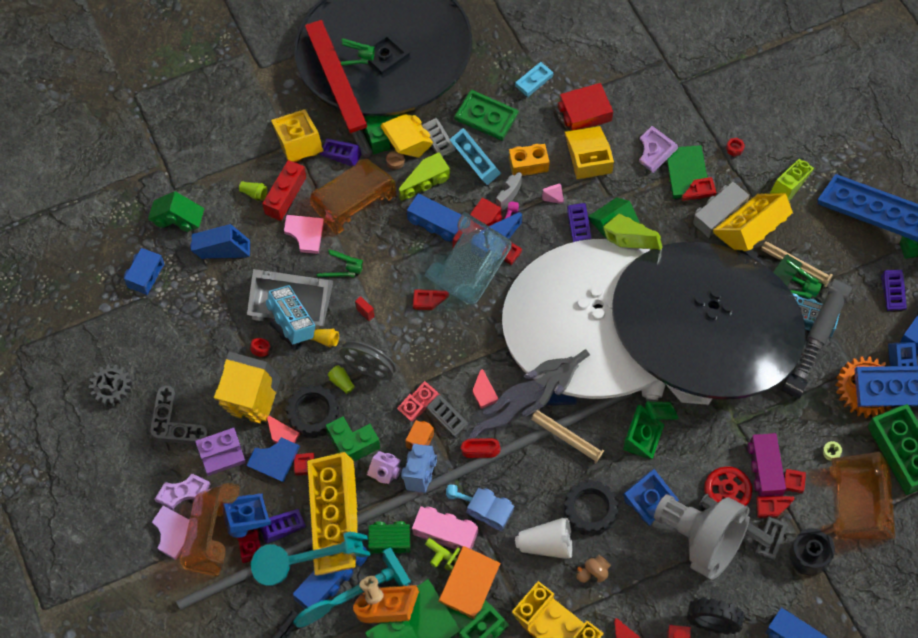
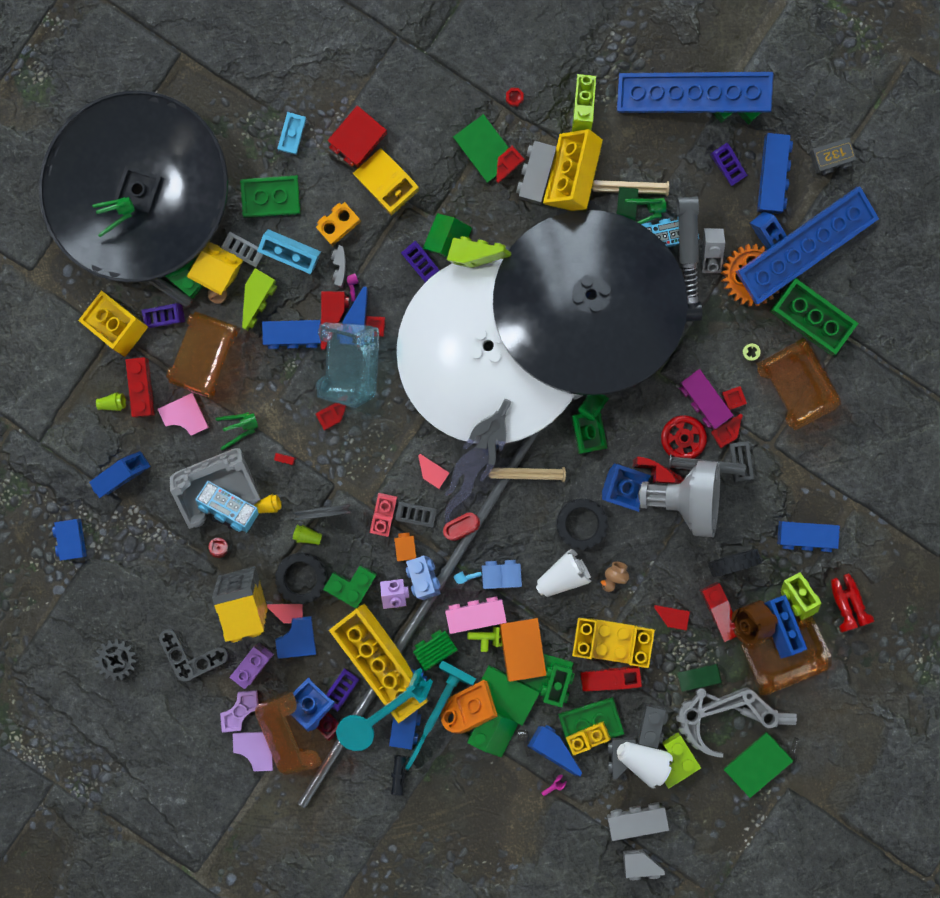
camera: 30 degrees left, 25 degrees up
(177, 210) = (59, 469): green brick -> none
(301, 464) = (323, 626): red tile -> none
(336, 76) = (113, 250): red tile -> none
(371, 590) = (450, 706): tan bush -> none
(553, 194) = (381, 245): bright pink slope -> none
(656, 149) = (445, 141): lavender tile -> none
(684, 488) = (659, 472): none -> red slope
(818, 543) = (770, 455): black brick -> none
(841, 349) = (713, 250): none -> light grey slope

